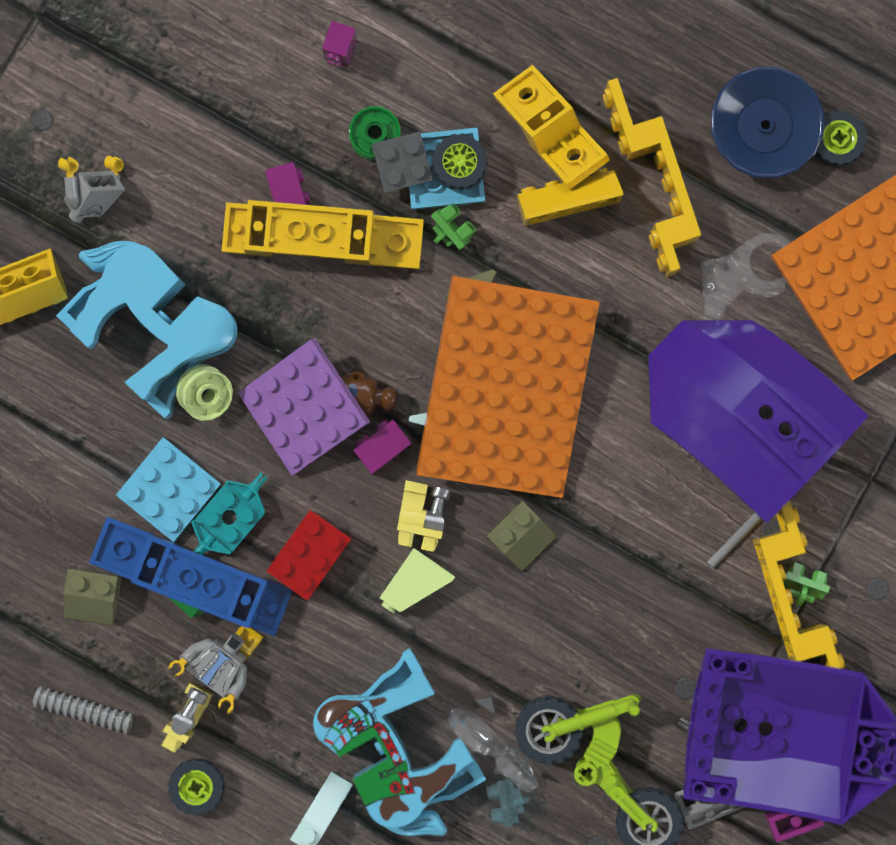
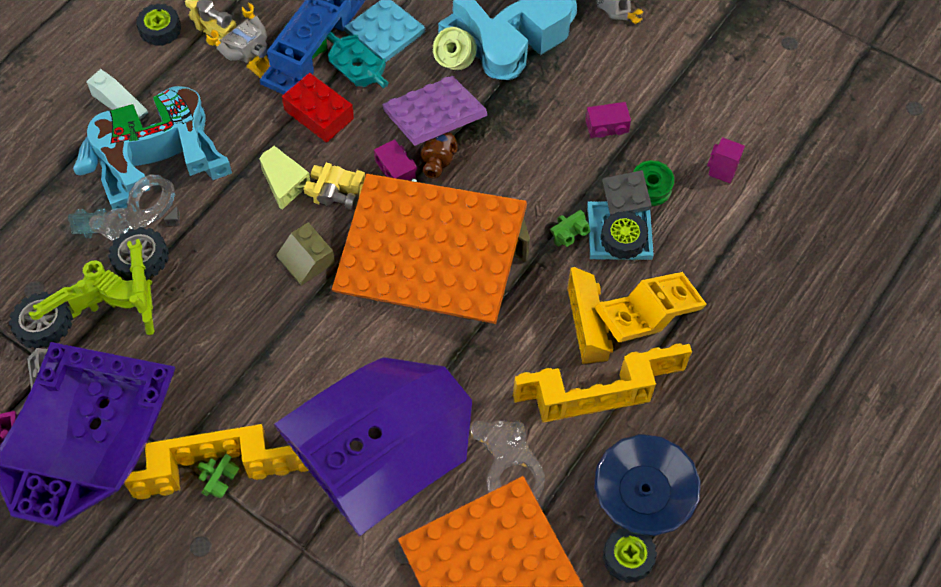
camera: 90 degrees right, 25 degrees down
(322, 233) = (569, 143): yellow bracket -> none
(735, 539) = (266, 420): light grey bar -> none

